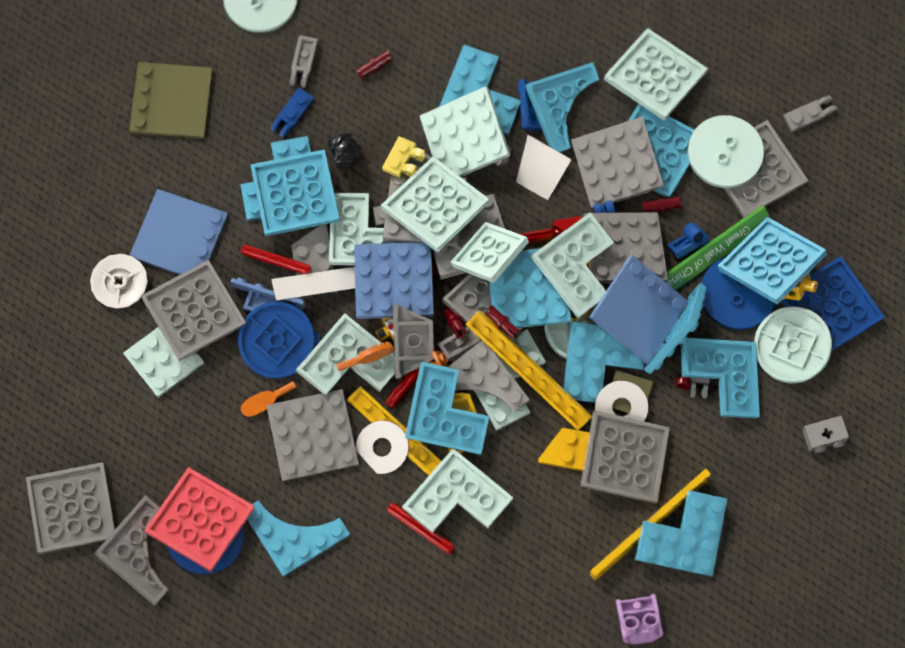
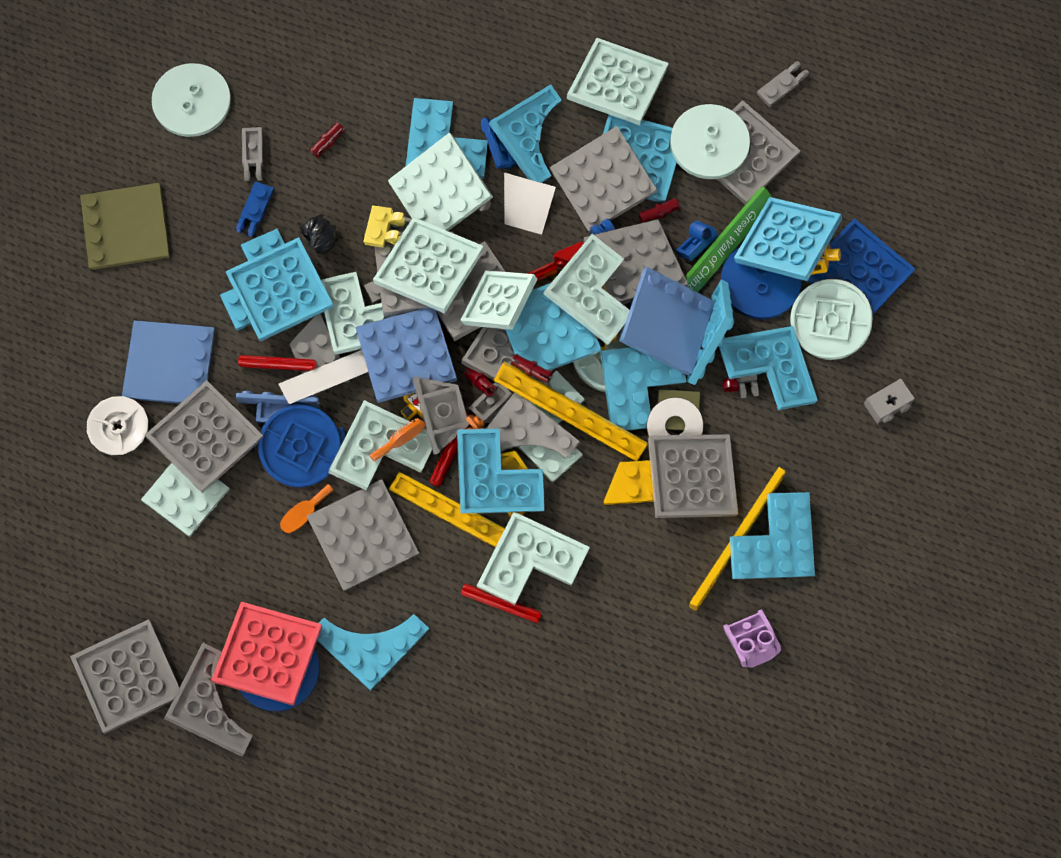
camera: 15 degrees left, 0 degrees up
(398, 442) = (443, 511): white sticker -> none

